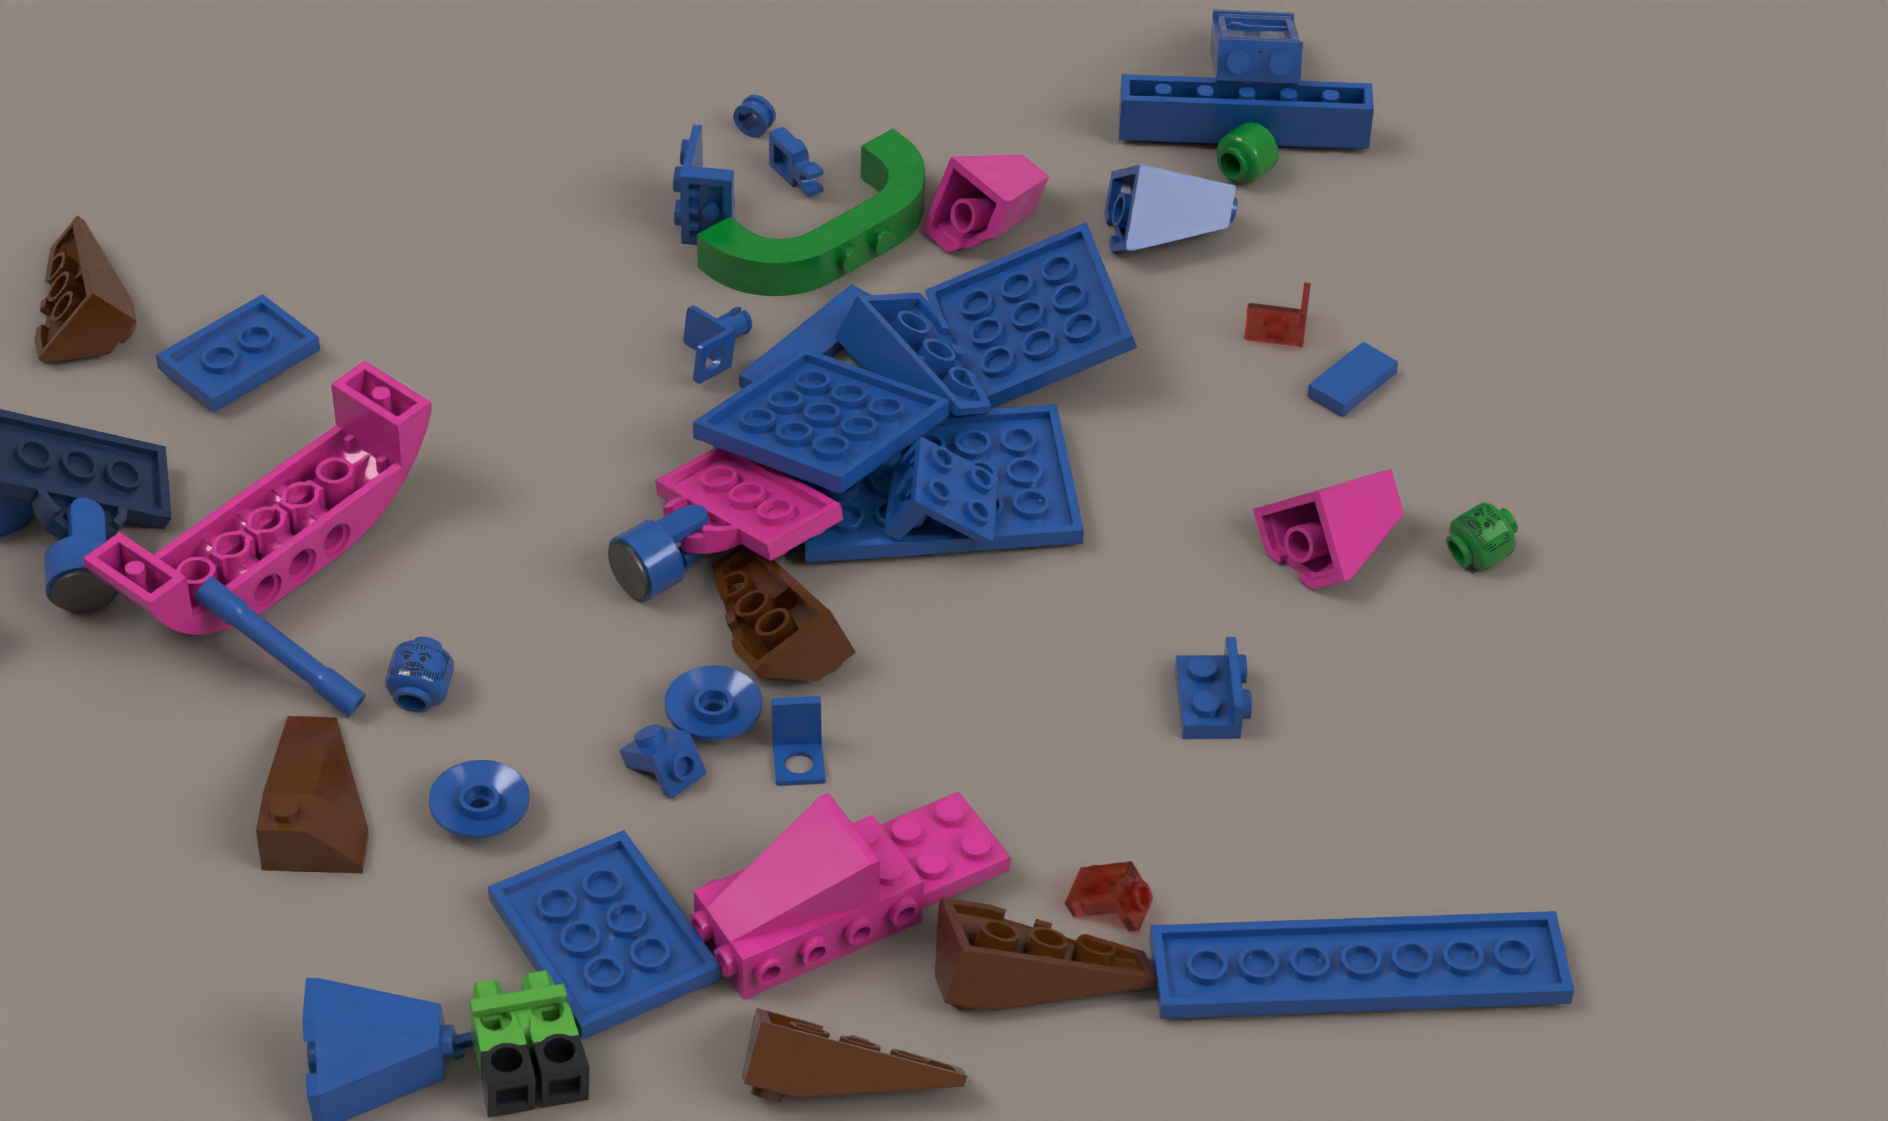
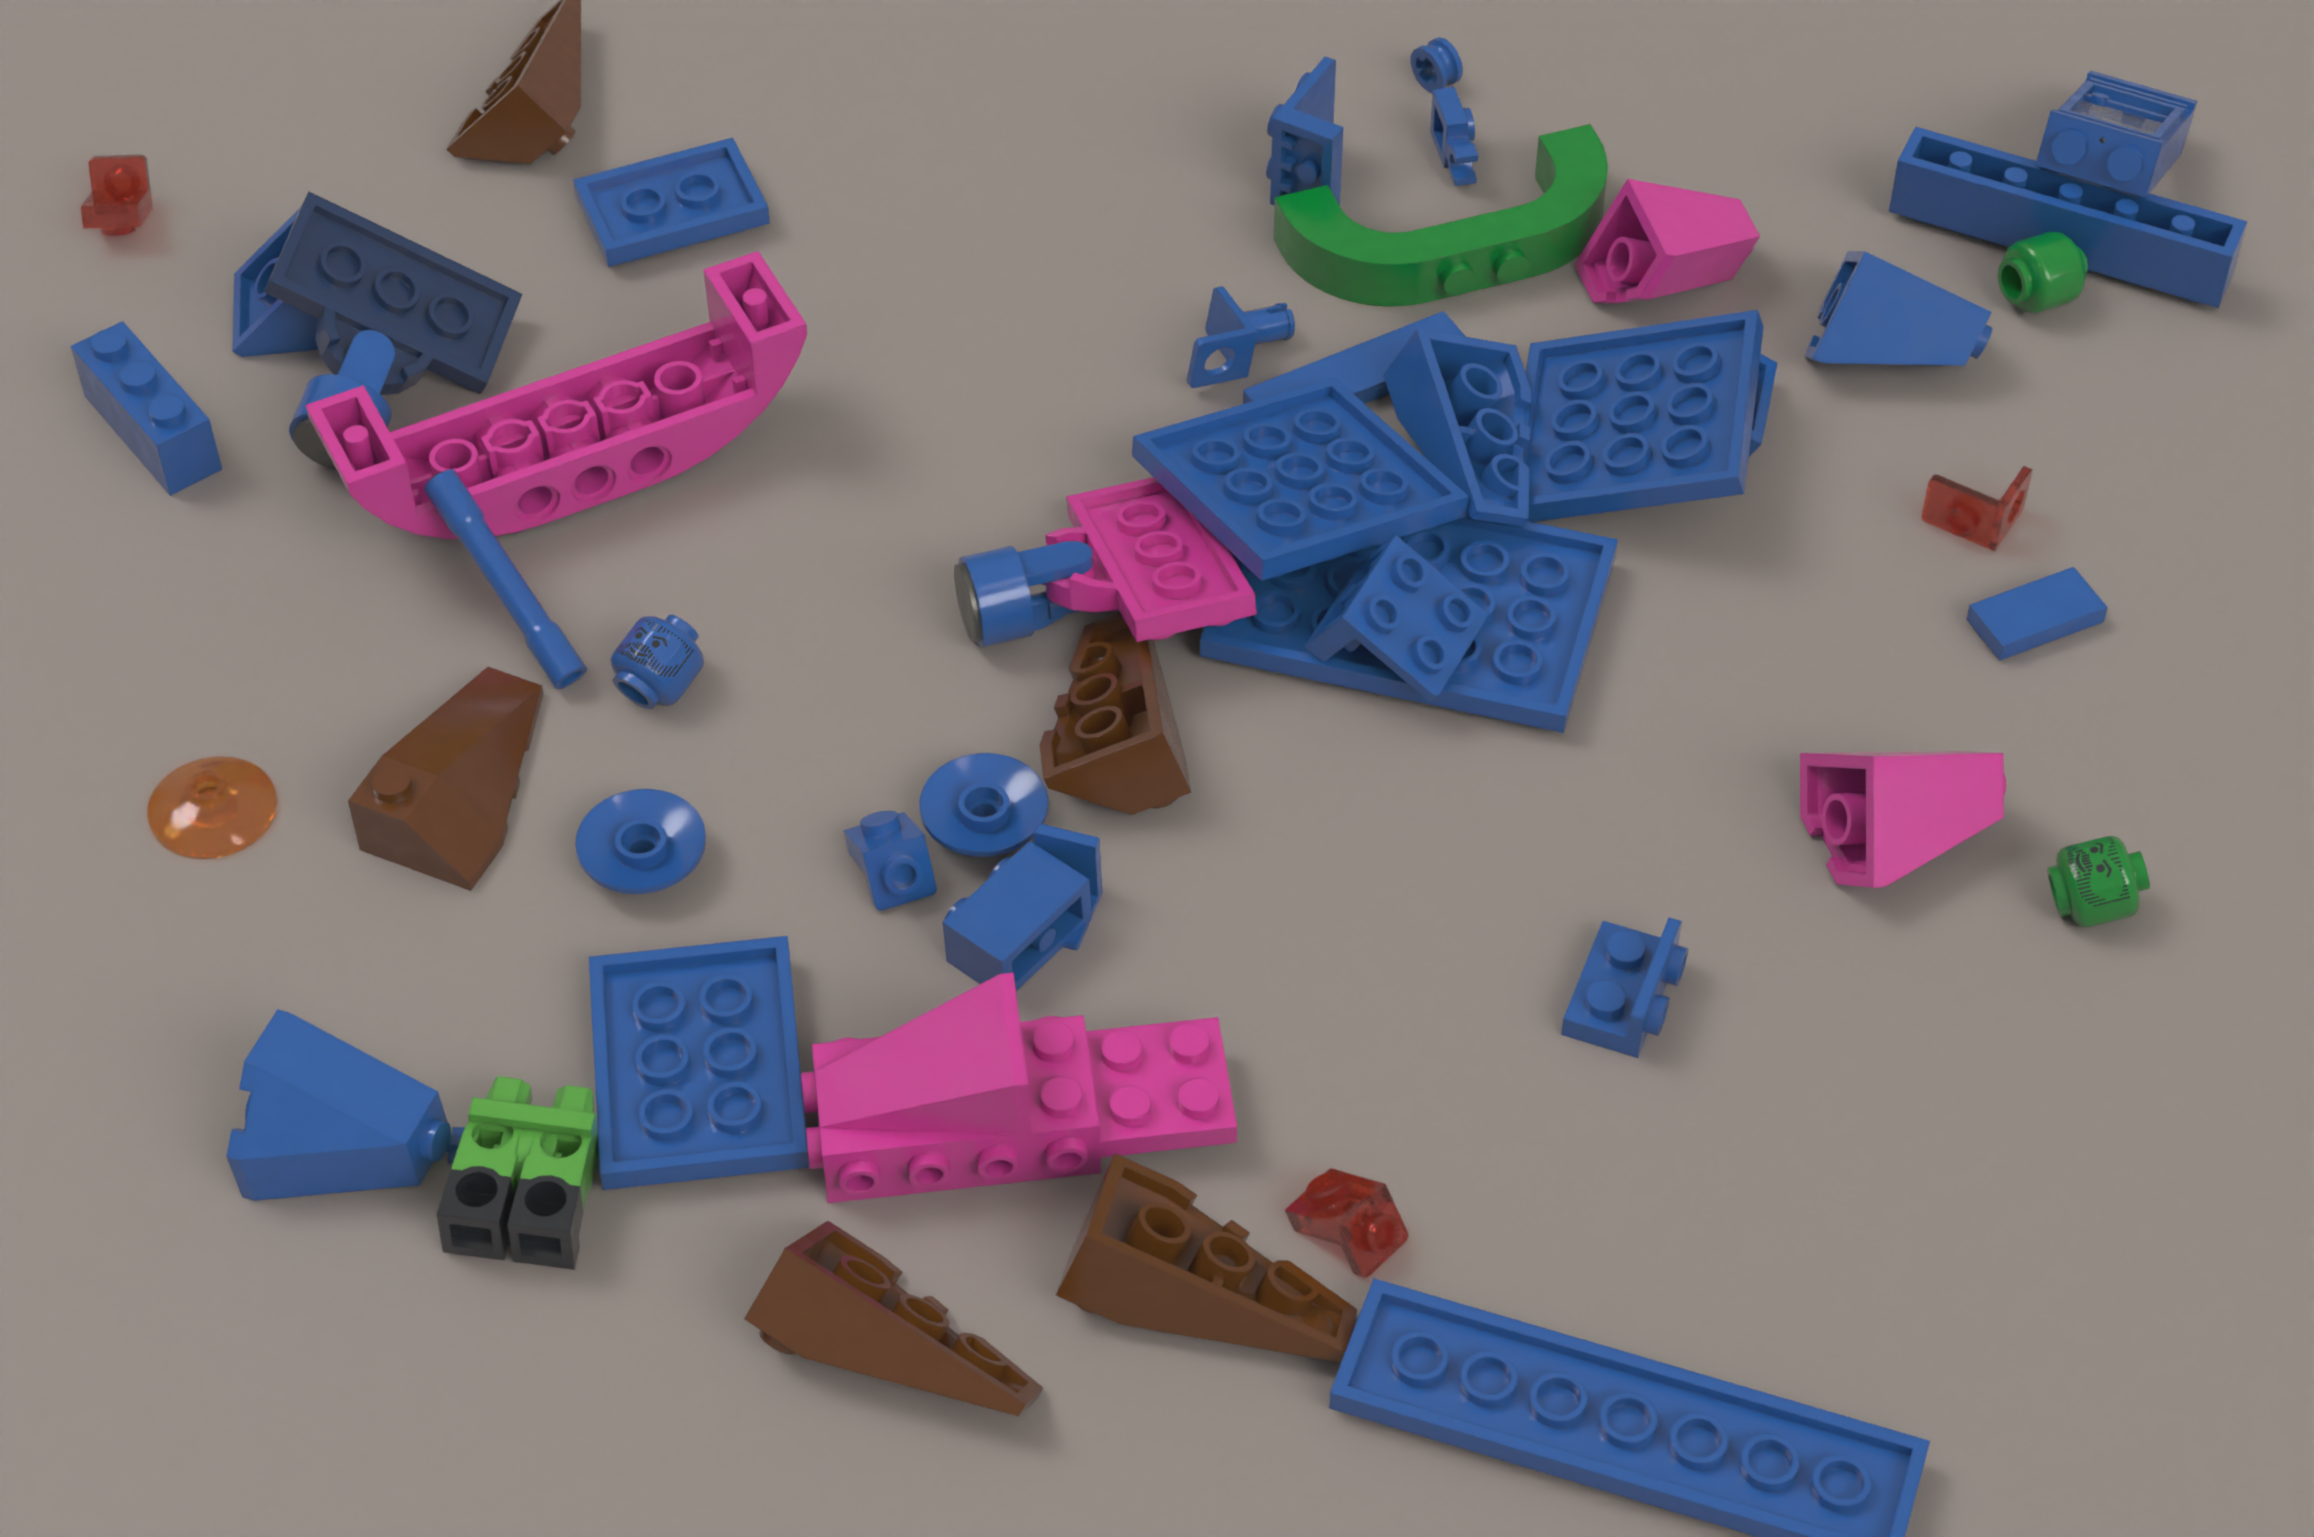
camera: 25 degrees right, 5 degrees up
(131, 874) = (212, 807): none -> clear orange dish
(778, 771) = (1017, 917): none -> blue brick

